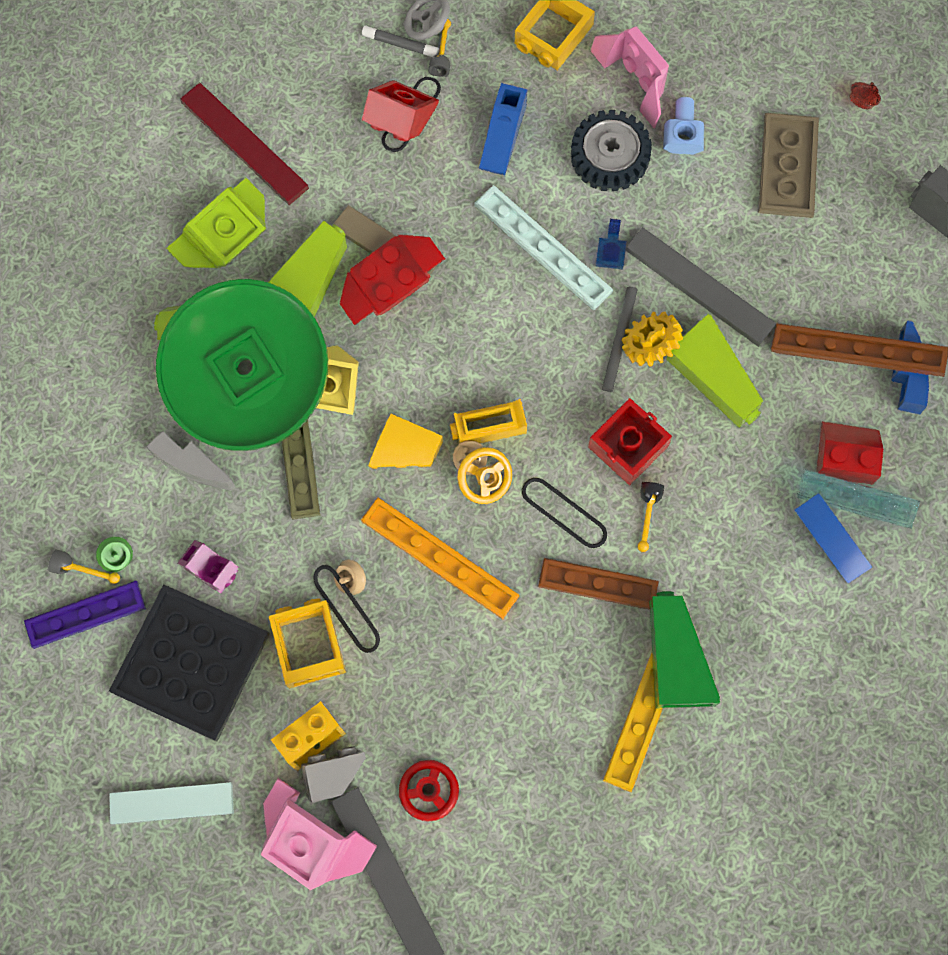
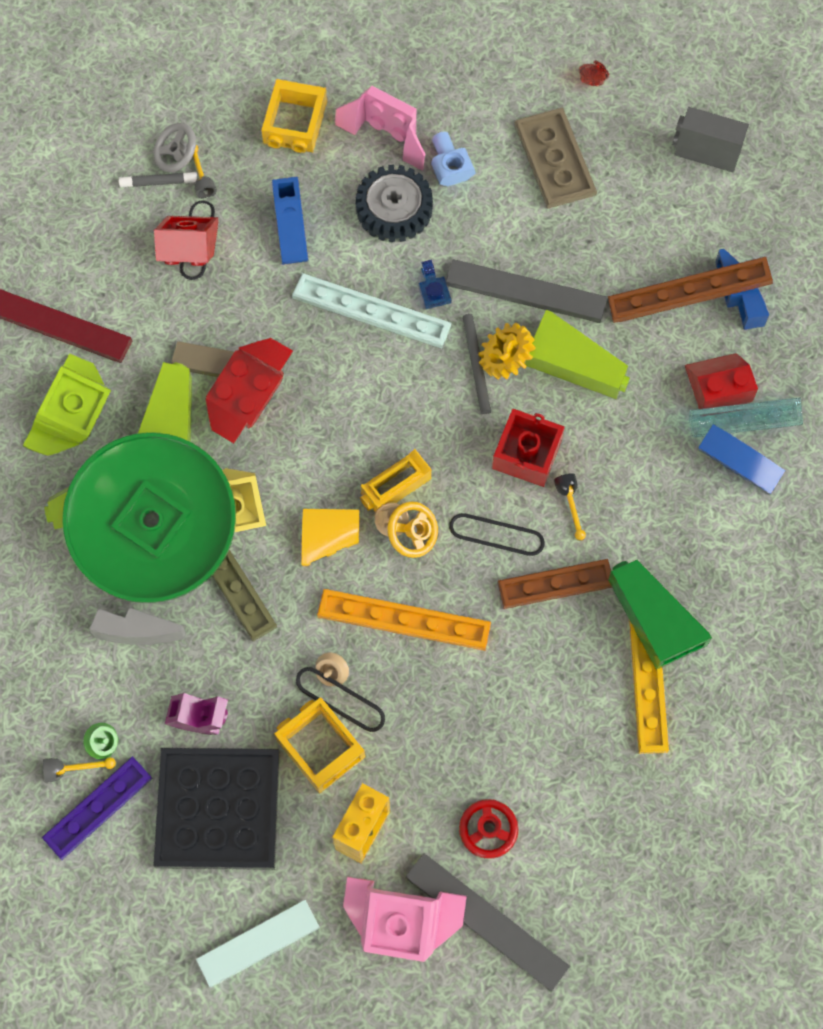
camera: 25 degrees left, 5 degrees down
(332, 775) = (397, 852): light grey slope -> none

